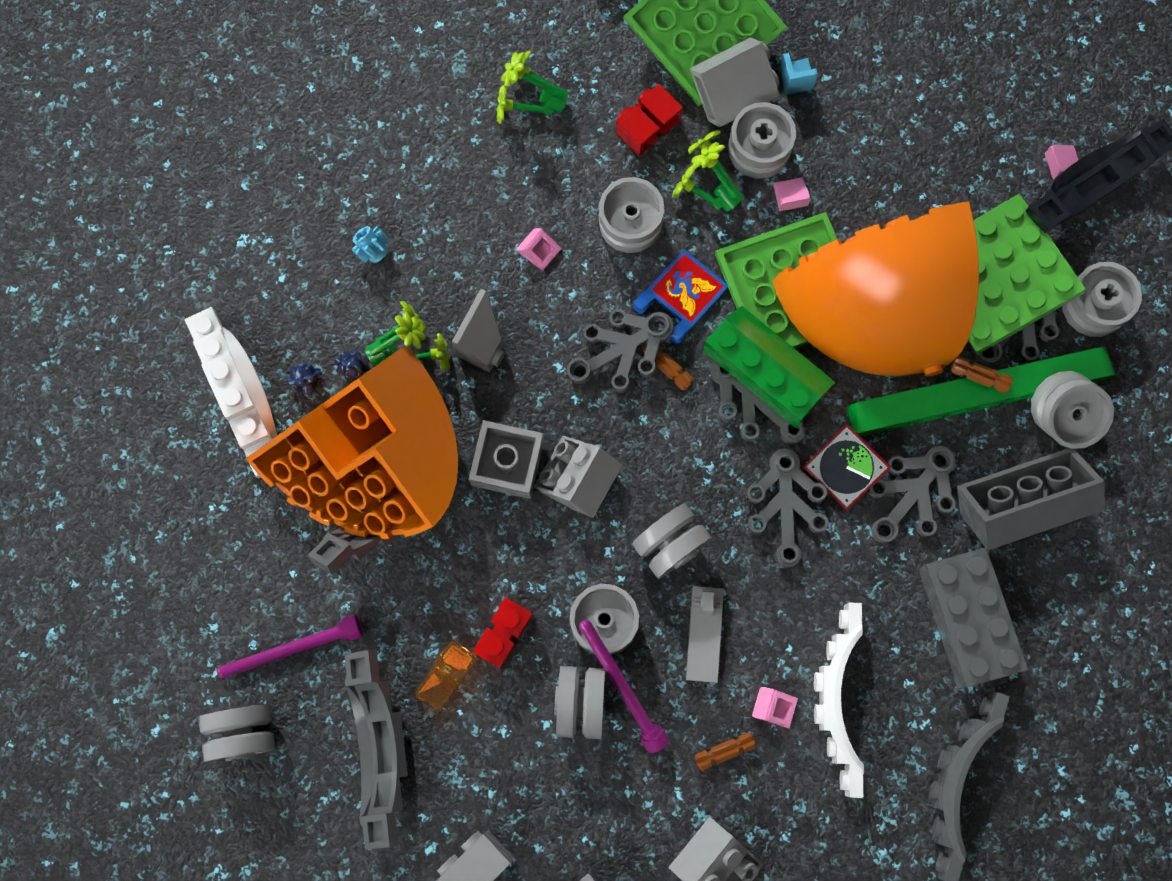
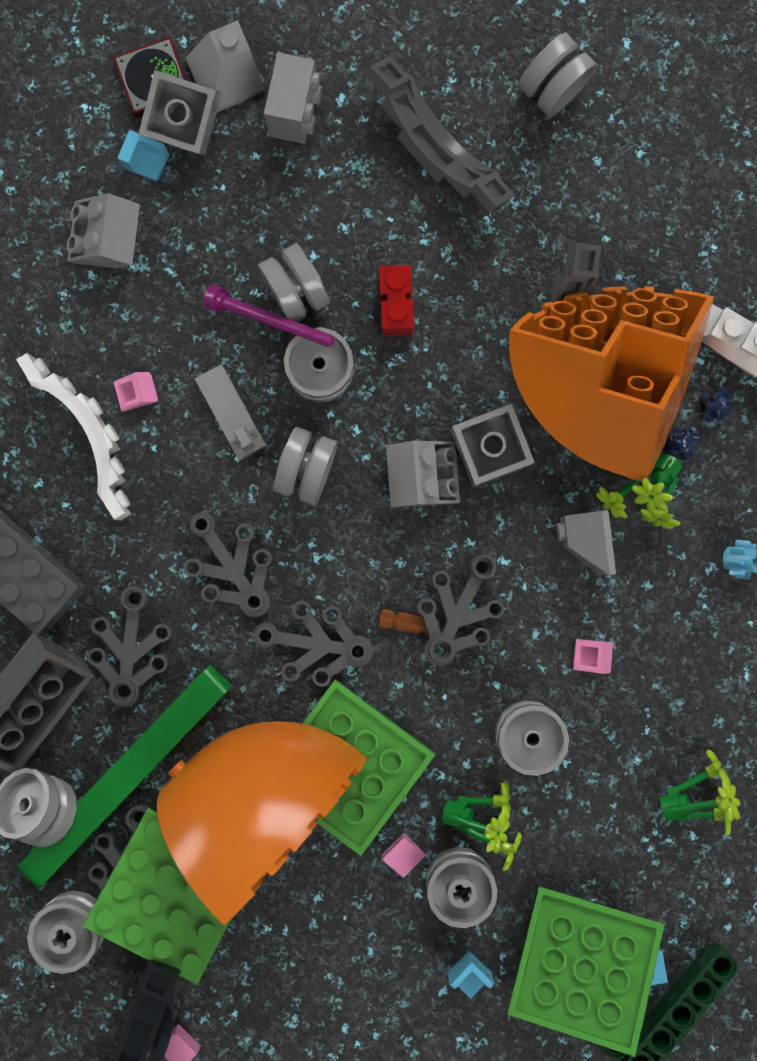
camera: 145 degrees right, 10 degrees up
(349, 629) = (527, 223): magenta piece -> none
(445, 676) = (421, 238): clear orange slope -> none
(653, 114) = (575, 857): red piece -> none
(685, 291) = (438, 701): flag -> none
(725, 751) = (153, 328): dark orange axle -> none
(735, 80) = (520, 929): light grey brick -> none
(767, 365) = (320, 677): green slope -> none
(847, 466) = (199, 632): tile -> none
(982, 374) = (130, 788): dark orange axle -> none

